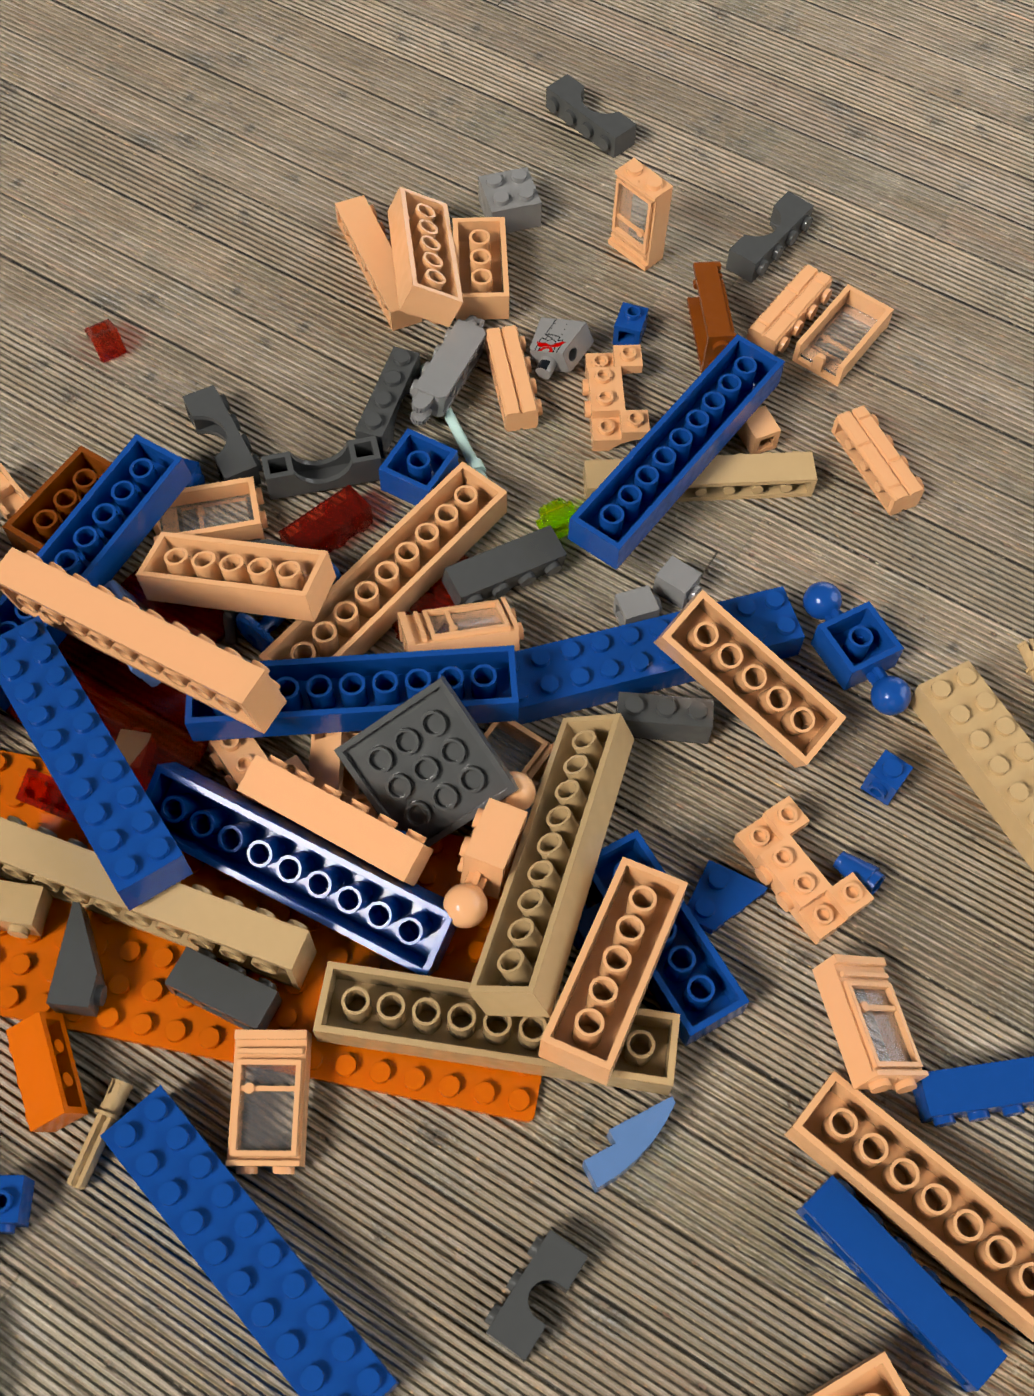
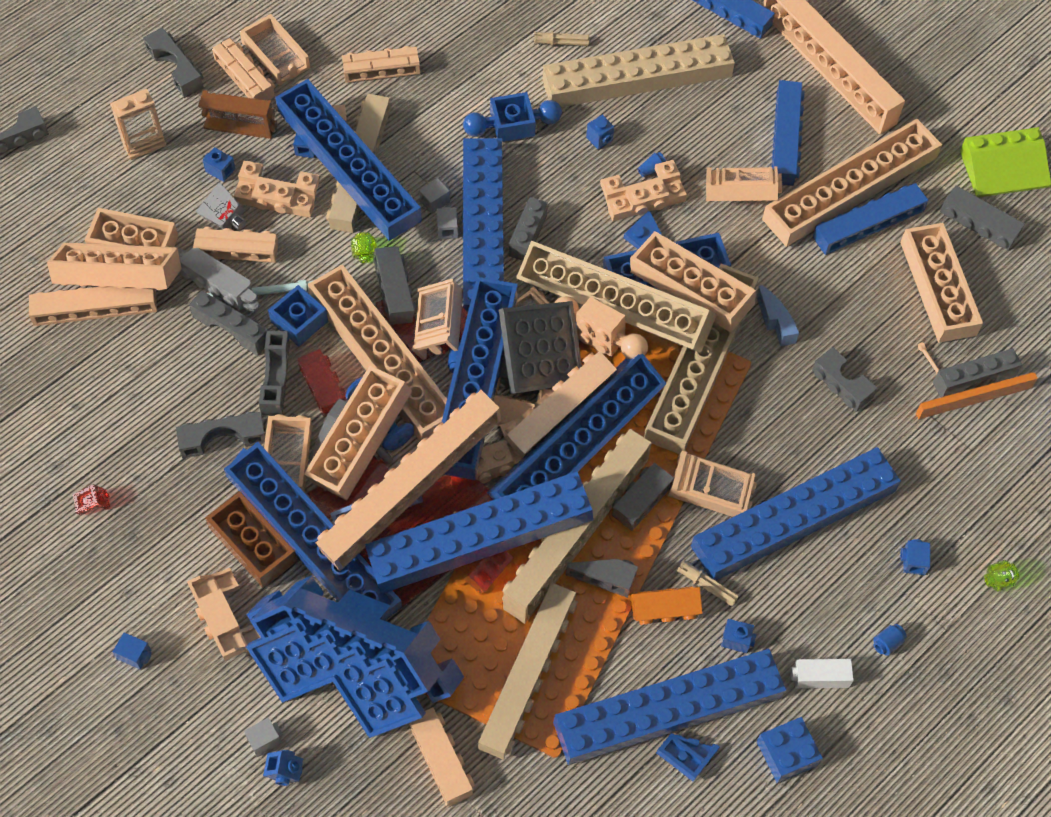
camera: 75 degrees left, 0 degrees up
(511, 196) = (71, 205): light grey brick -> none
(750, 680) = (525, 172): light nougat brick -> none

